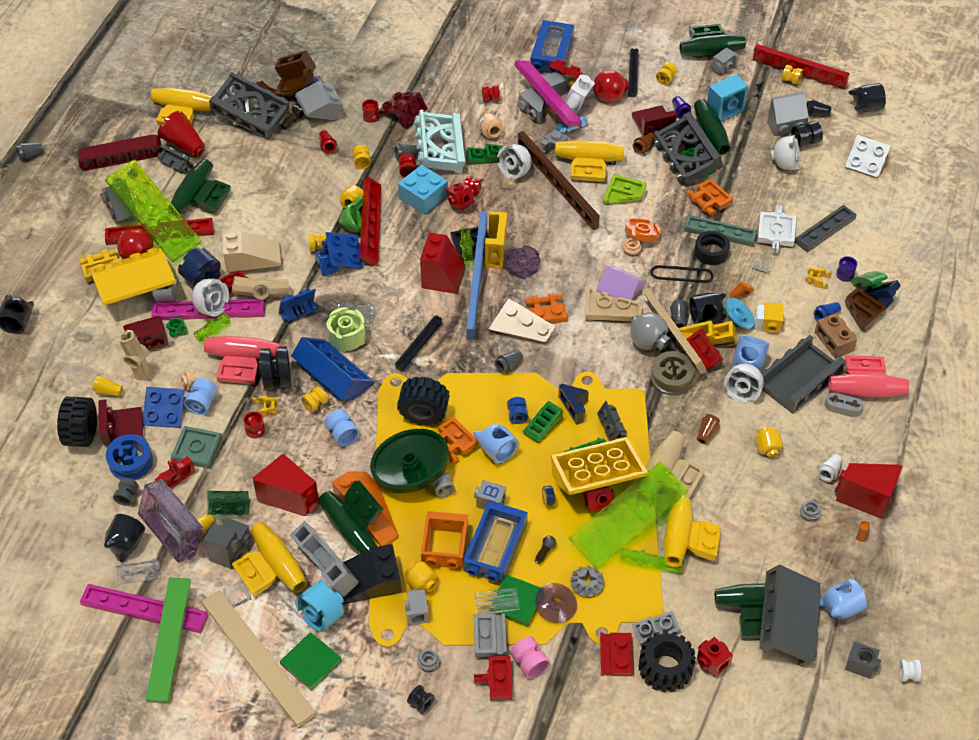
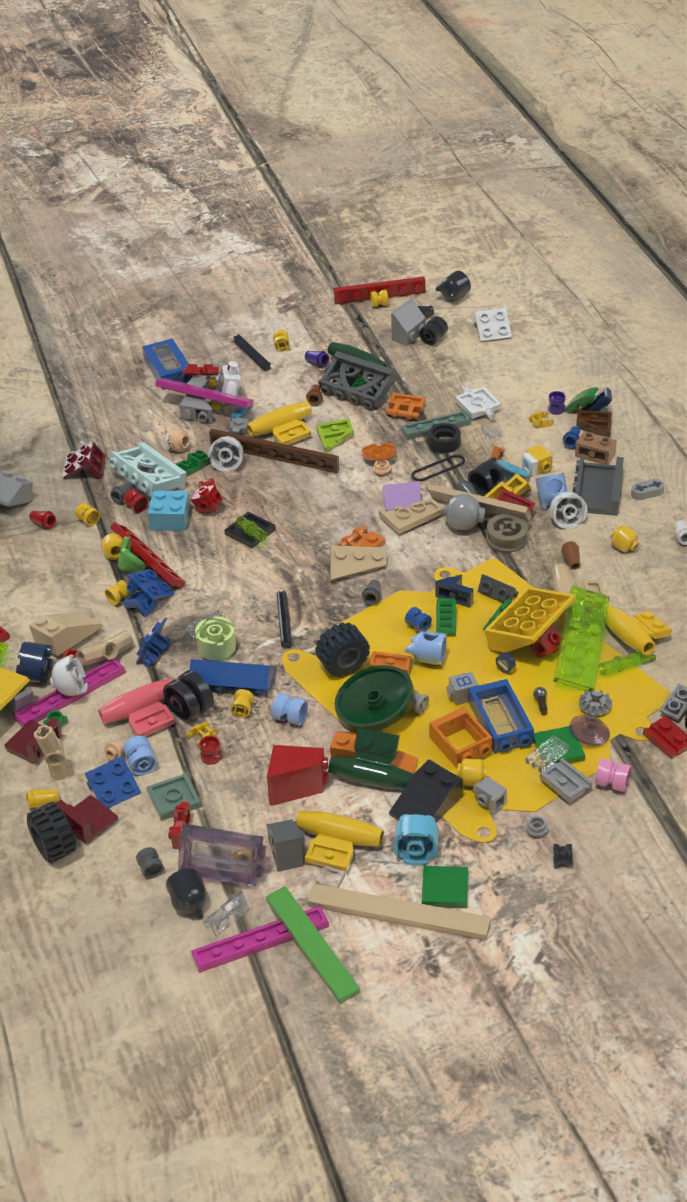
camera: 35 degrees left, 10 degrees down
(126, 449) = (112, 834): blue wheel -> none
(212, 327) = (90, 702): clear neon green pin -> none
(228, 503) = (253, 816): clear green bracket -> none
(325, 558) = (362, 802): light grey arch -> none
(370, 110) = (58, 478): red wheel -> none
(441, 265) = (245, 553): red slope -> none
(477, 272) = (284, 546): medium blue tile -> none
(490, 93) = (151, 417): red wheel -> none
(496, 243) = (273, 505): yellow panel -> none
(497, 678) = (603, 804): red plate -> none
(525, 269) = (301, 526): clear purple plate -> none
(610, 86) = (249, 367): red brick -> none
(653, 119) = (306, 376): dark red bracket -> none
(709, 41) = (290, 304): dark green plate -> none
(725, 61) = (318, 312): light grey brick -> none
(728, 96) = (351, 329): medium azure brick -> none
(786, 153) = (433, 349): white cylinder -> none
(825, 228) = (511, 386): dark grey tile -> none
(867, 378) = (647, 465): coral plate -> none

